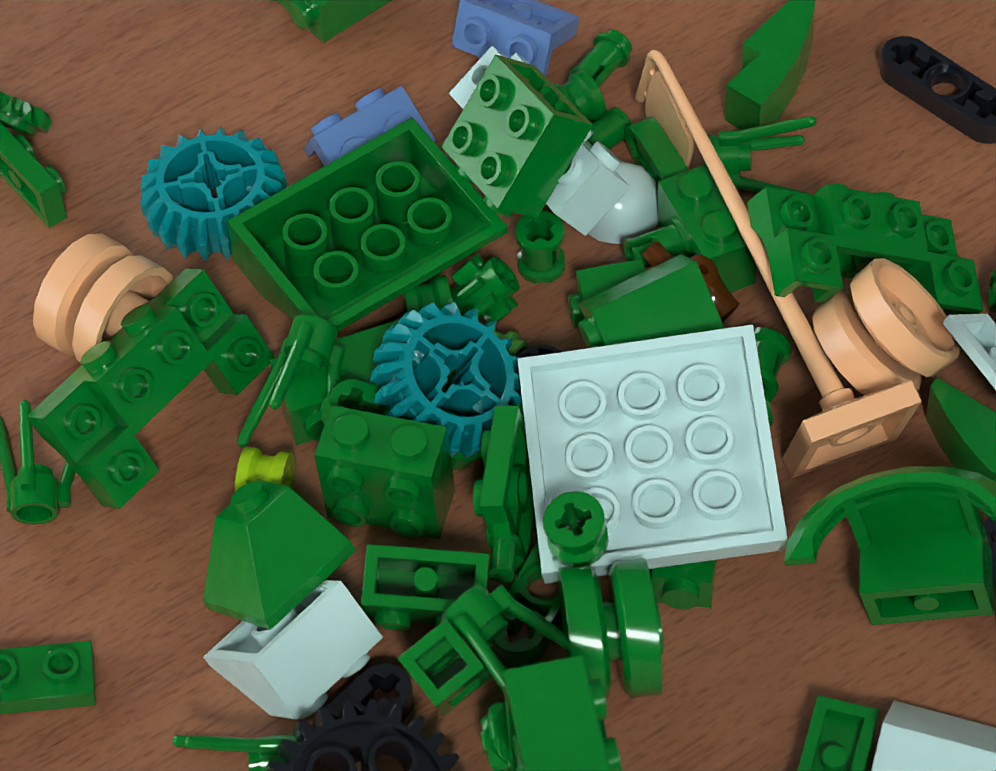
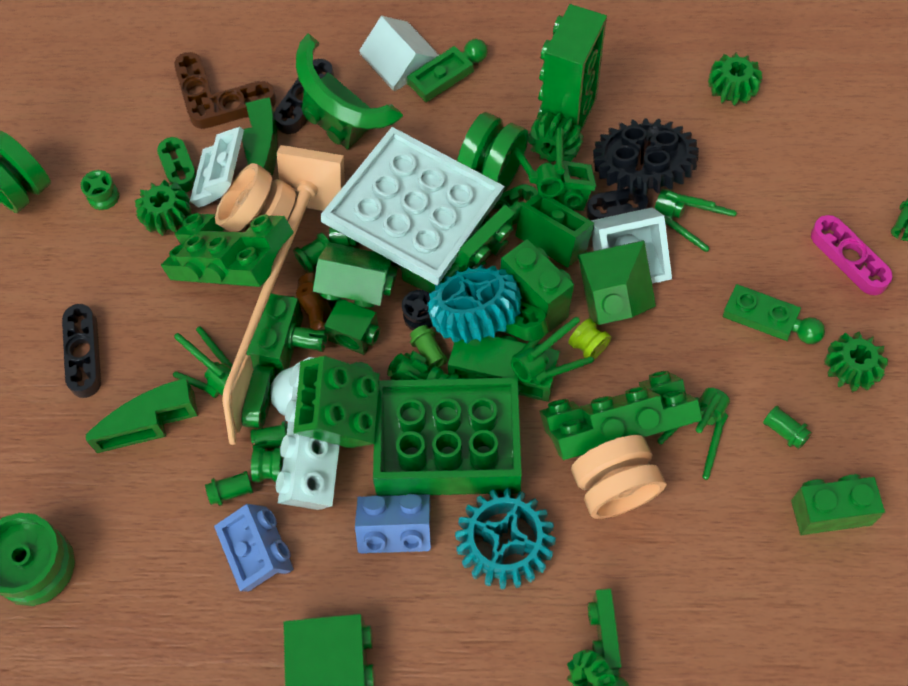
camera: 145 degrees left, 10 degrees up
(579, 543) = (484, 185): green wheel -> none

